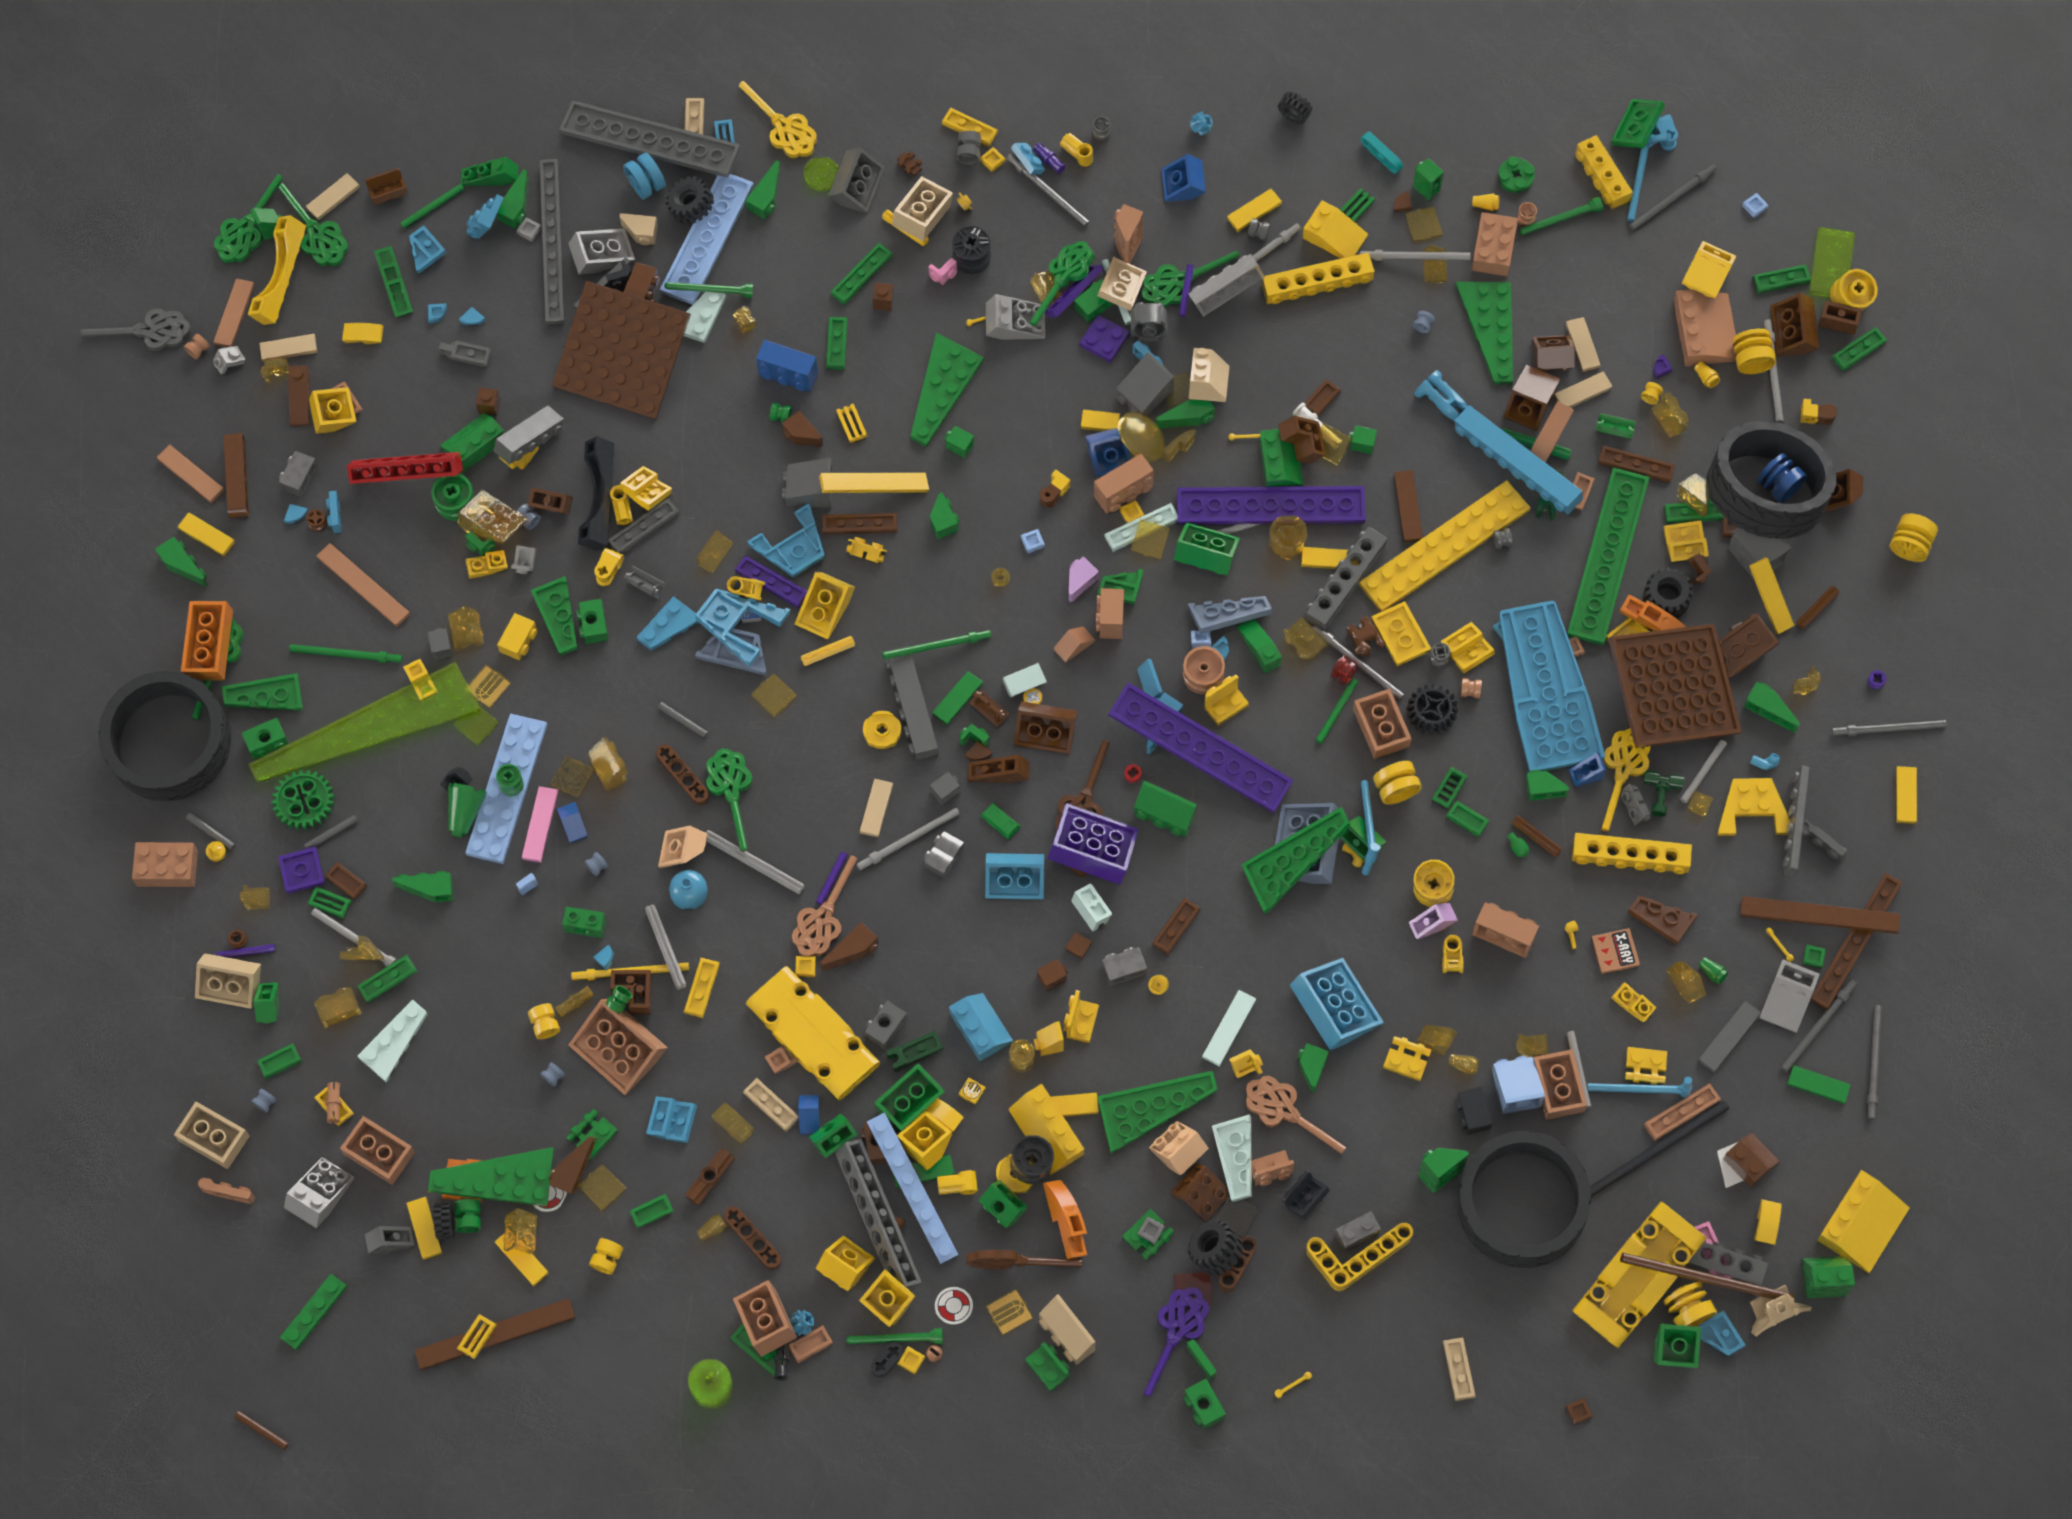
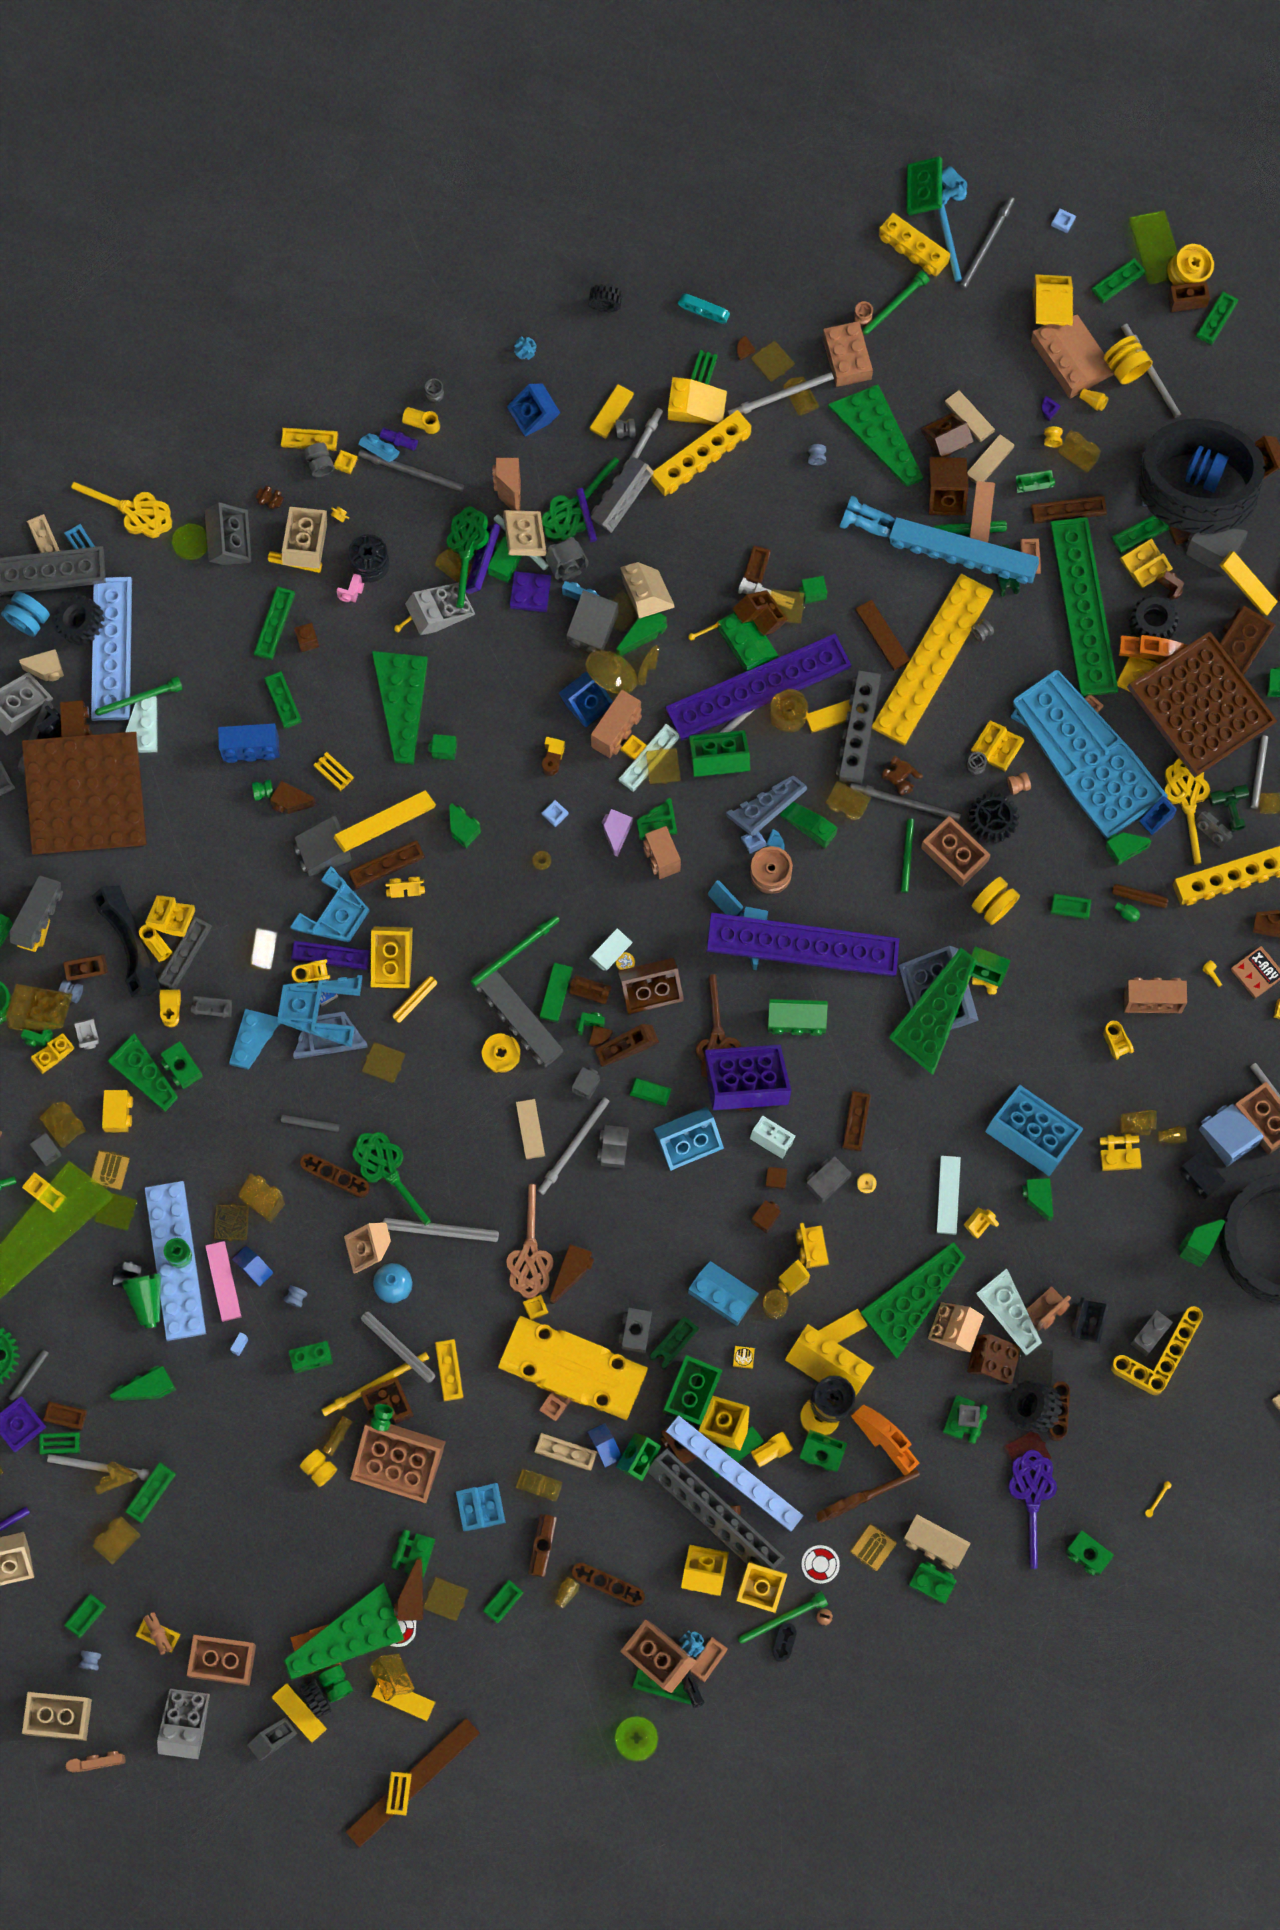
camera: 25 degrees left, 5 degrees up
(266, 1002) = (47, 1565): green slope -> none
(313, 1312) = (233, 1839): green plate -> none
(388, 1046) = (182, 1555): light aqua wing -> none
(552, 1074) = (350, 1514): sand blue wheel -> none
(605, 957) = (345, 1381): dark azure tile -> none
(606, 1255) = (482, 1663): yellow wheel -> none
(744, 318) = (185, 713): clear yellow wheel -> none
(763, 197) = (147, 588): green slope -> none
(831, 878) = (520, 1213): dark purple bar -> none
(911, 1360) = (806, 1632): yellow tile -> none
(945, 1114) = (731, 1391): yellow slope -> none
(1073, 643) = (638, 895): nougat slope -> none
(1099, 420) = (563, 672): yellow tile -> none
(1129, 769) = (745, 991): red bush -> none
(1201, 1359) = (1067, 1513): green tile -> none
(1225, 700) = (803, 891): yellow bracket -> none
(1263, 1089) = (1032, 1242): nougat piece -> none
(1344, 670) = (898, 815): clear red wheel -> none
(1373, 848) = (1006, 973): dark azure bar -> none
(1401, 633) = (932, 758): yellow plate -> none
(1428, 178) = (759, 316): green brick -> none
(1432, 873) = (1079, 973): yellow wheel -> none
(1433, 920) = (1085, 1015): lavender slope -> none
(1452, 771) = (1043, 868): green slope -> none
(1488, 202) = (821, 316): yellow cone -> none
(1512, 166) = (832, 270): green plate -> none
(1532, 1045) = (1226, 1092): clear yellow bracket -> none
(1694, 493) = (1136, 516): clear yellow slope -> none
(1795, 325) = (1151, 320): reddish brown slope -> none
(1817, 414) = (1208, 395): leg -> none

